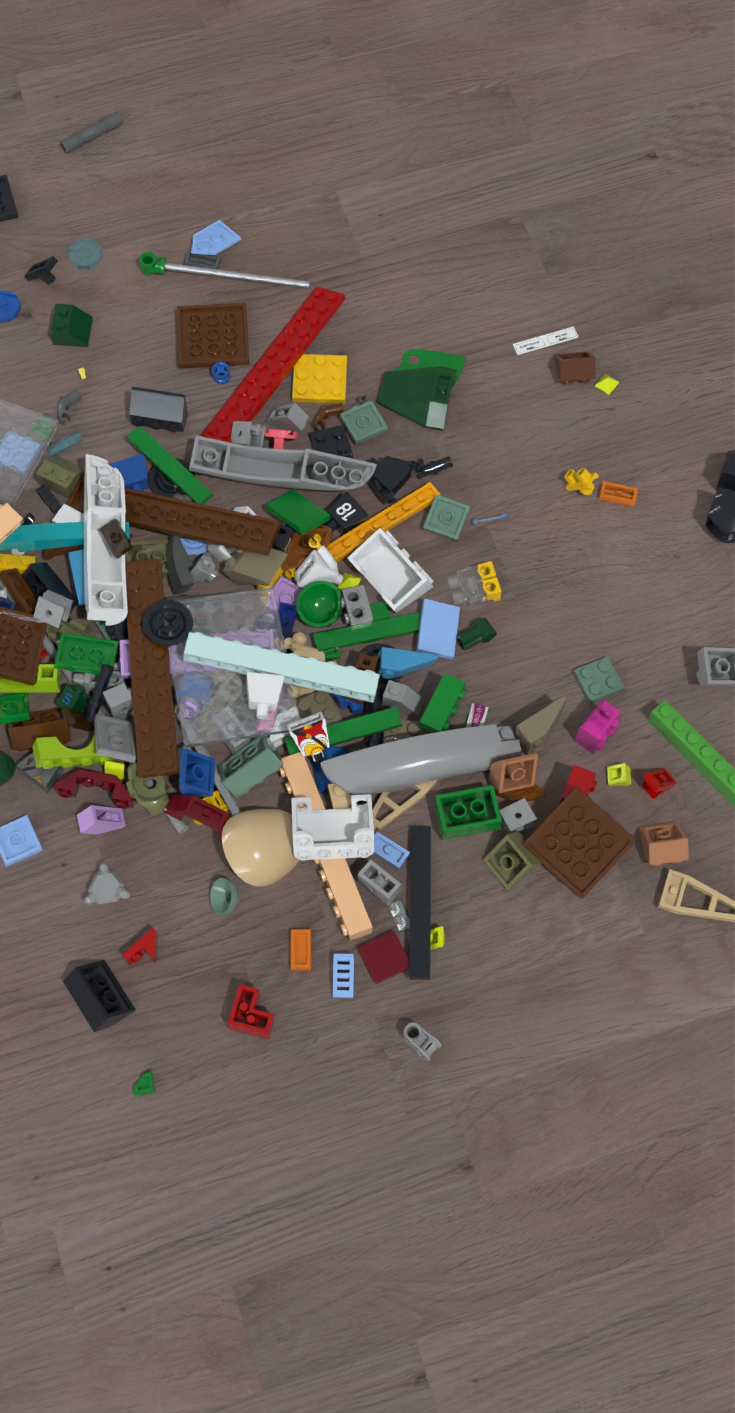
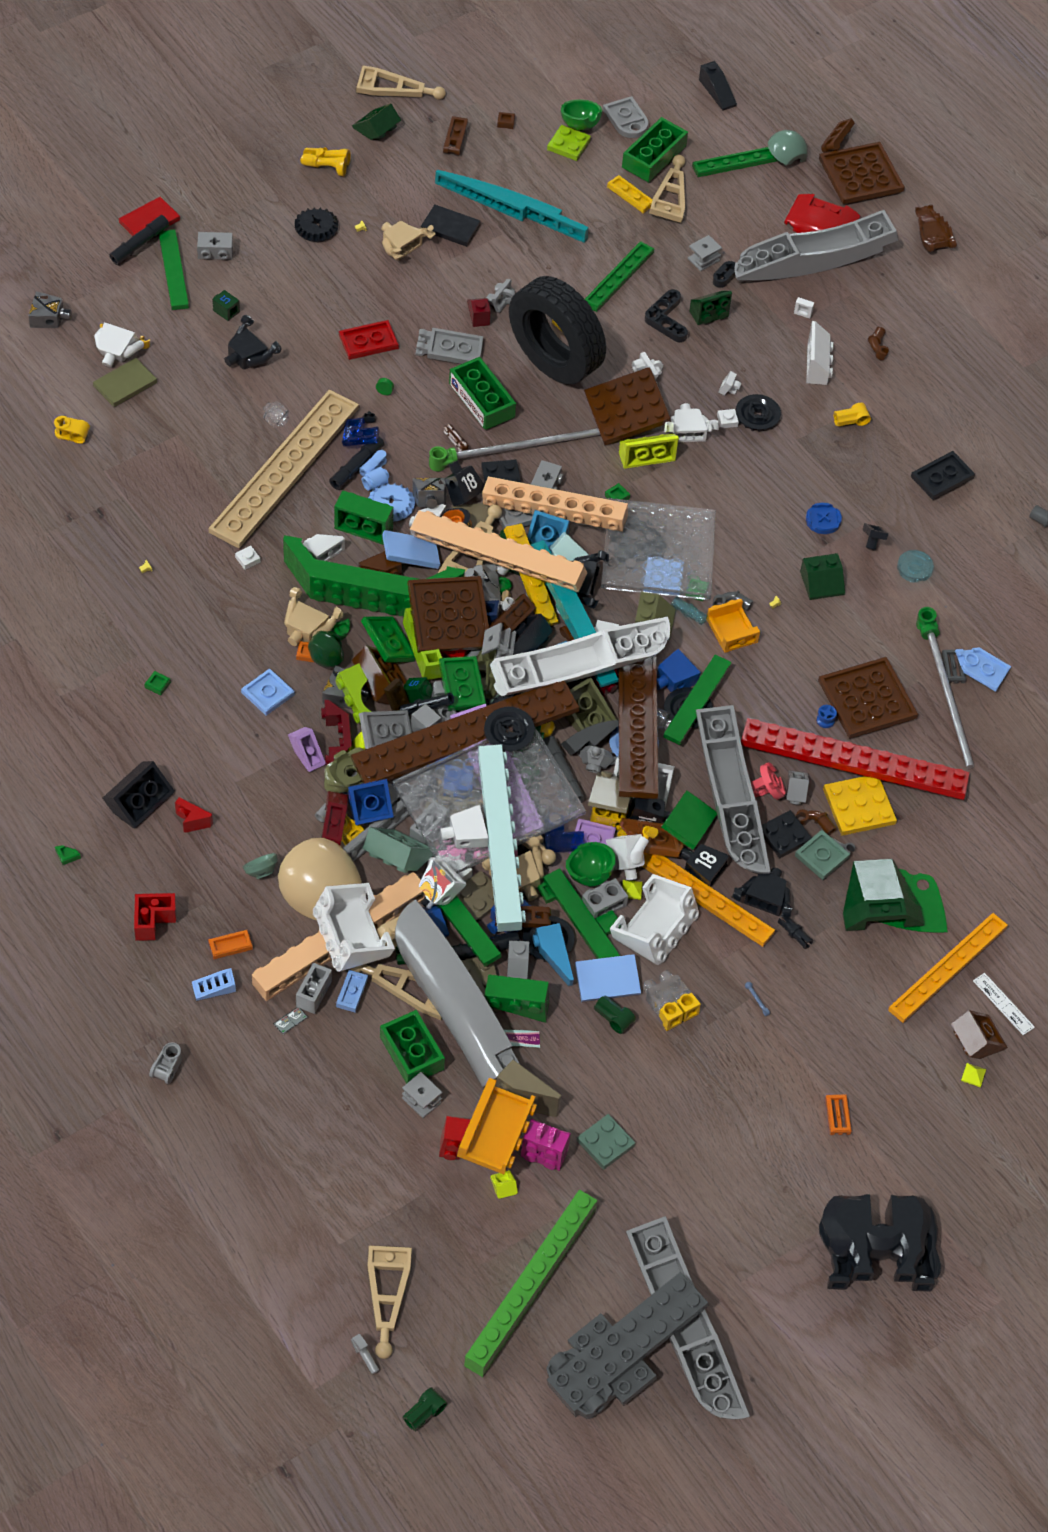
camera: 70 degrees right, 10 degrees down
(49, 499) = (623, 613): black beam -> none
(96, 415) = (732, 626): none -> light orange panel
(106, 887) = (240, 768): light grey rock -> none
(116, 538) = (584, 664): dark brown plate -> none
(158, 409) = (755, 672): slope -> none
(189, 707) = (430, 772): clear tile -> none
(250, 434) = (758, 756): light grey piece -> none
(384, 957) = (243, 1016): dark red tile -> none
(420, 903) = (306, 1031): black tile -> none
(437, 938) = (274, 1055): neon yellow slope -> none
(446, 517) = (738, 955): sand green plate -> none
(504, 367) = (947, 968): none -> light orange plate
(511, 860) = (377, 1102): olive slope -> none
(514, 773) = (464, 1076): nougat slope -> none
(529, 793) = (451, 1090): clear orange tile -> none
(579, 842) = (407, 1148): reddish brown plate -> none
(580, 481) = (832, 1070): yellow hips -> none
(586, 756) = (496, 1128): none -> light orange panel
(658, 782) = (506, 1218): red slope -> none
(664, 843) = (439, 1237): nougat slope -> none

